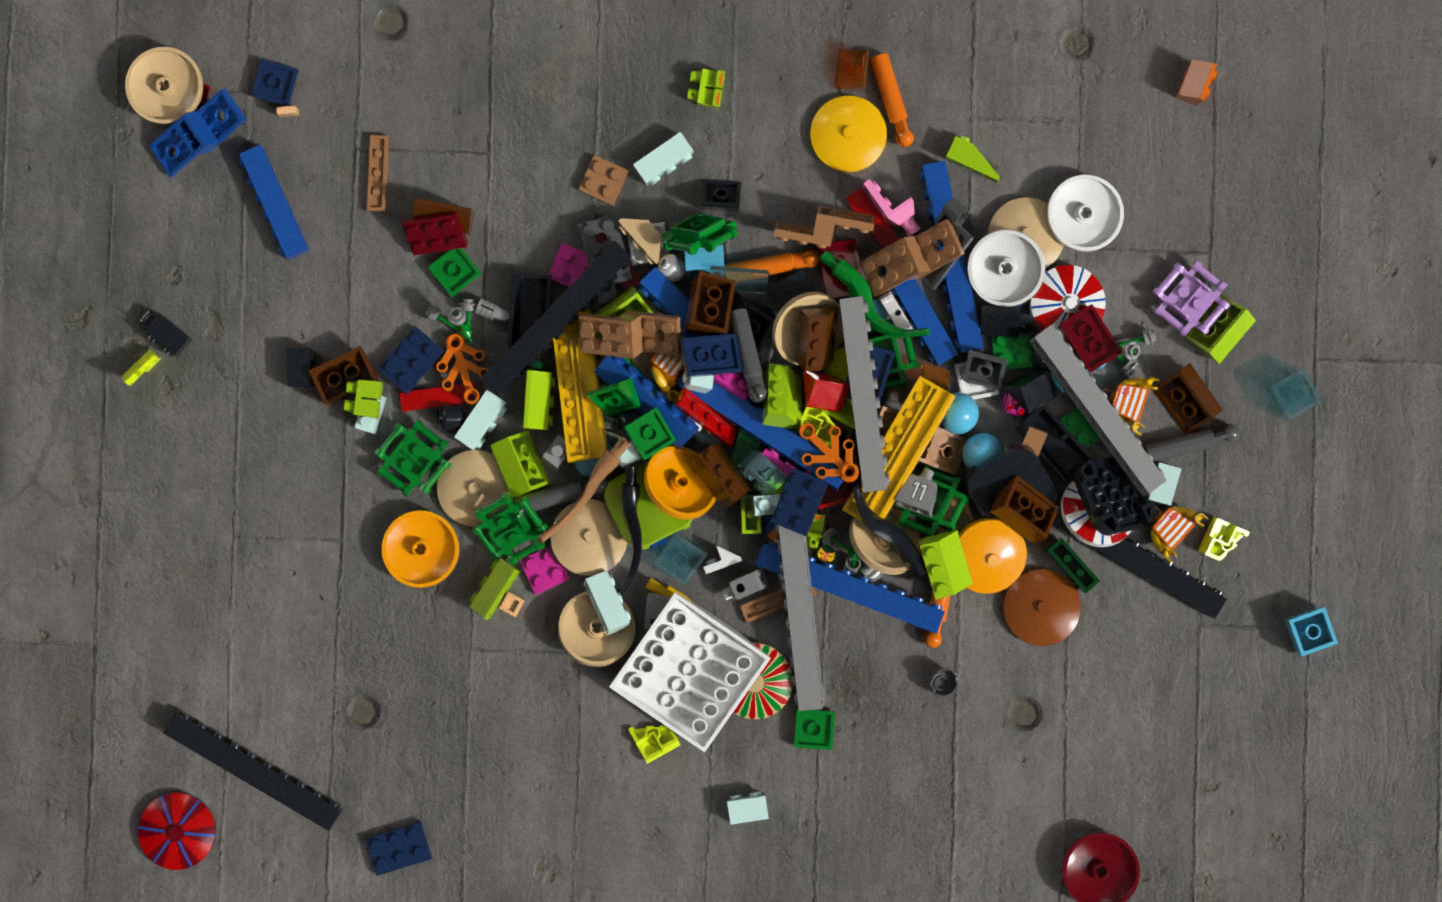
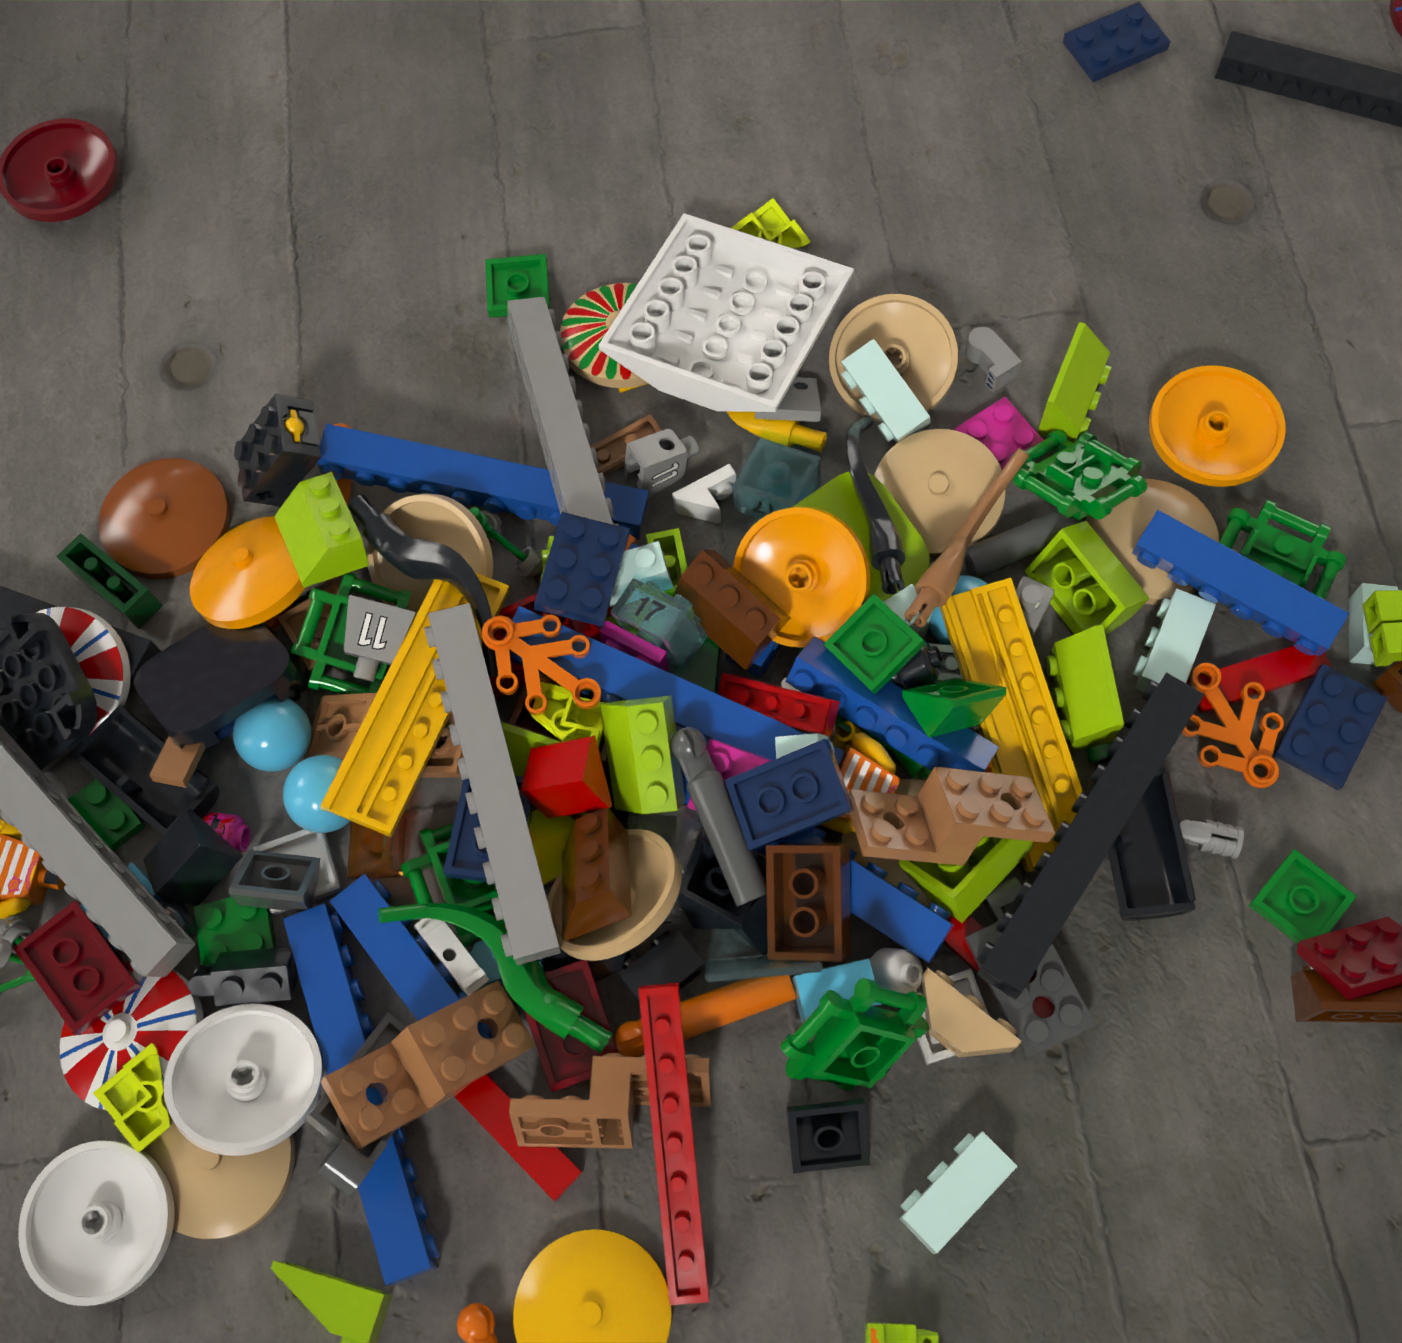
camera: 175 degrees right, 20 degrees down
(441, 442) = (1240, 584): none -> blue brick
(450, 417) = (1230, 641): black head -> none
(456, 317) = (1282, 800): light grey plant -> none
(511, 604) = (1038, 380): light nougat tile -> none
(538, 628) = (993, 356): none -> light grey leg
(568, 265) = (1091, 947): dark pink plate -> none
(603, 180) = (1065, 1128): medium nougat plate -> none
(747, 808) = (605, 165): light aqua brick -> none
(796, 200) = (674, 1144): none -> red plate
(826, 554) = (533, 534): tile -> none
(899, 216) = (466, 1151): bright pink plate -> none
(943, 682) = (318, 379): dark grey hair -> none
(967, 625) = (277, 450): none -> black piece
(1025, 510) = (186, 642): reddish brown slope -> none
(1061, 266) = (137, 1099): none -> neon yellow slope

